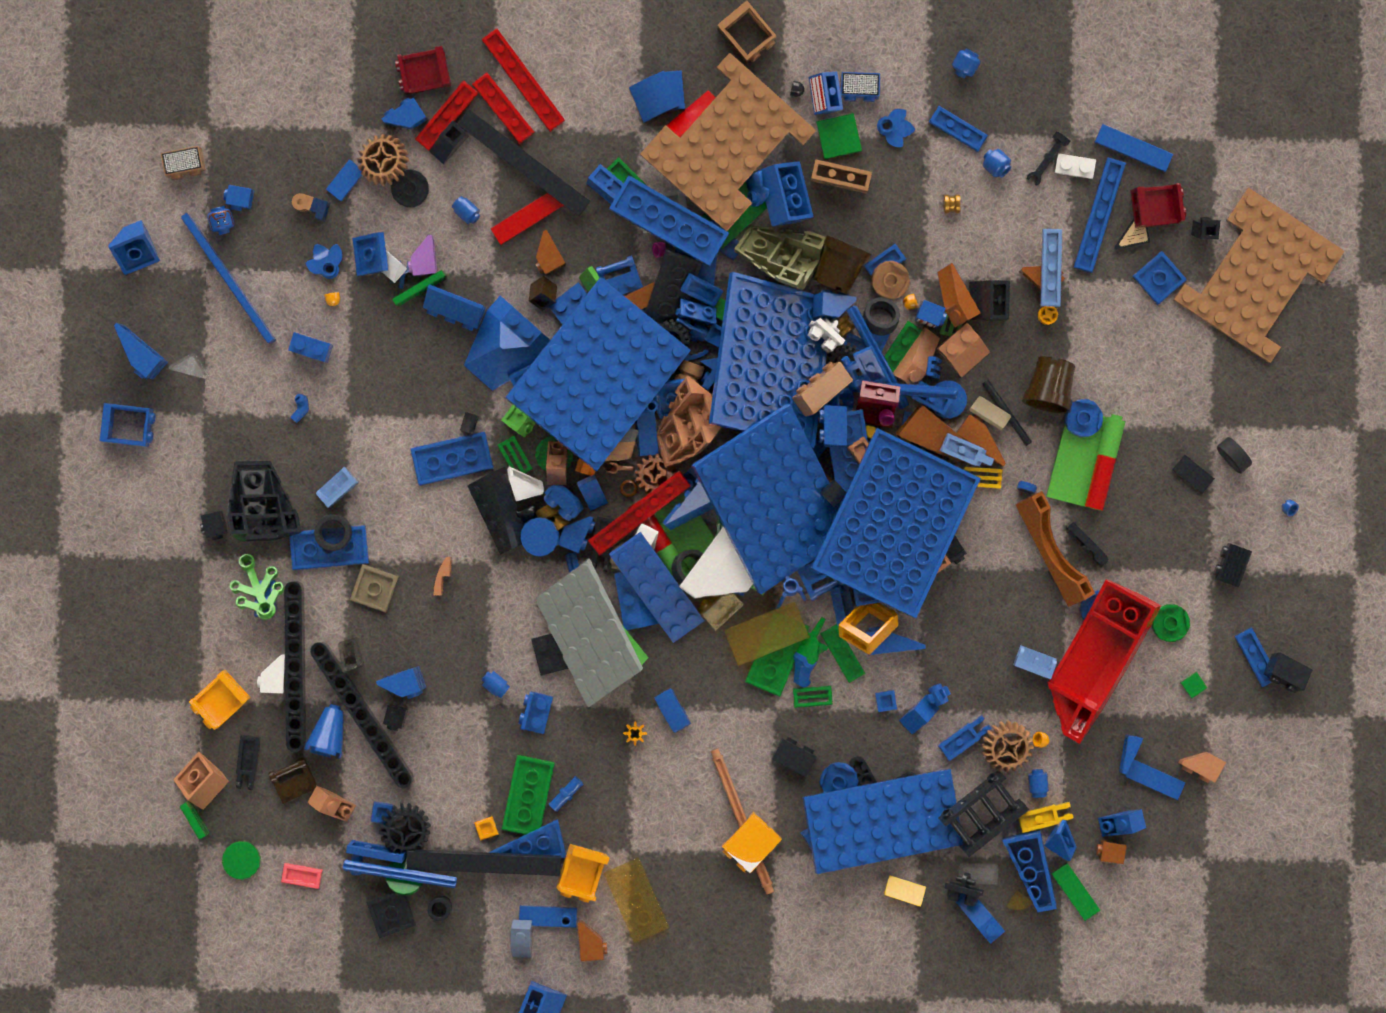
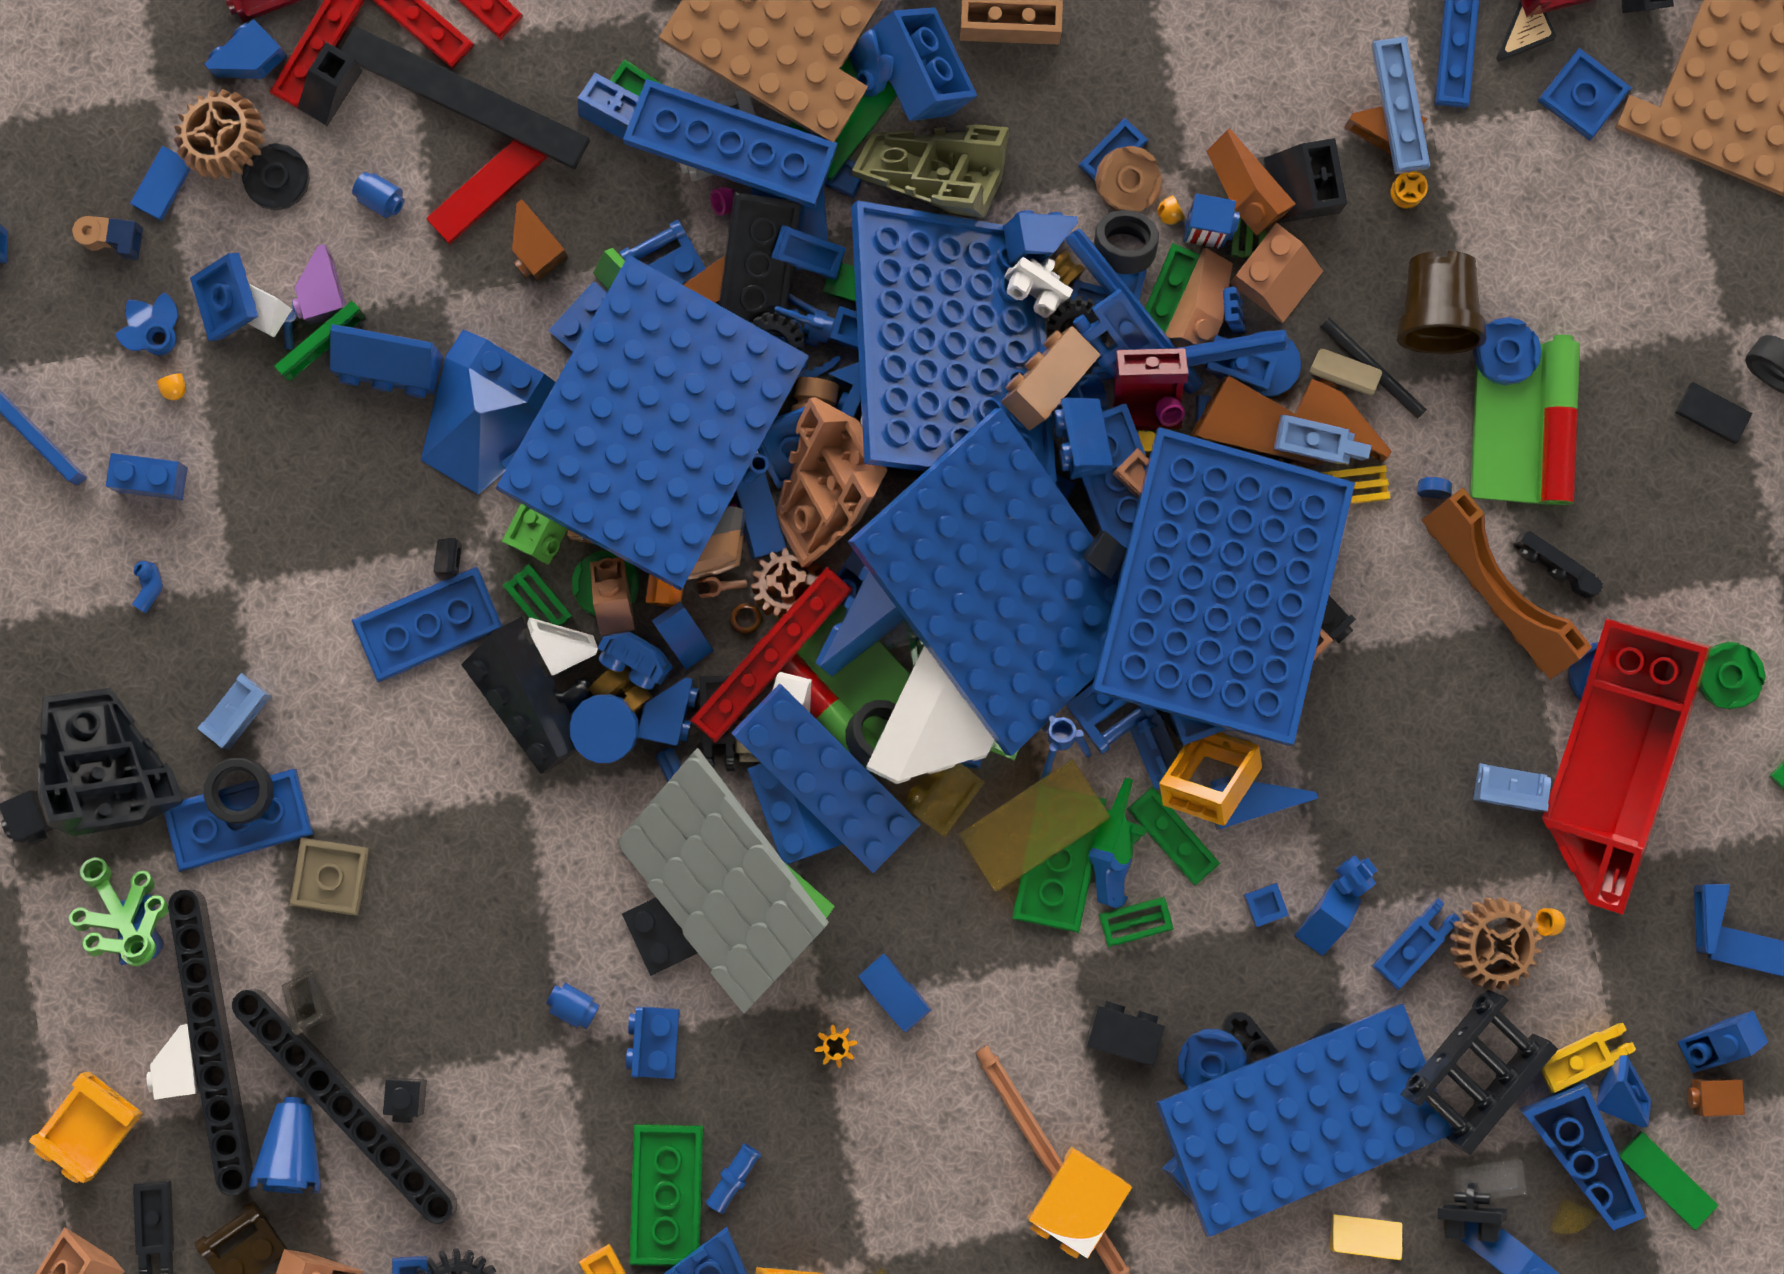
camera: 15 degrees left, 5 degrees down
(405, 683) = (413, 1031): blue slope -> none
(445, 570) = (447, 821): nougat slope -> none
(543, 293) = (535, 311): dark brown panel -> none
(696, 311) = (818, 294): blue hinge -> none
(840, 264) = (1039, 163): dark brown piece -> none
(951, 203) = (1208, 33): pearl gold wheel -> none
(1038, 783) = (1562, 999): blue brick -> none

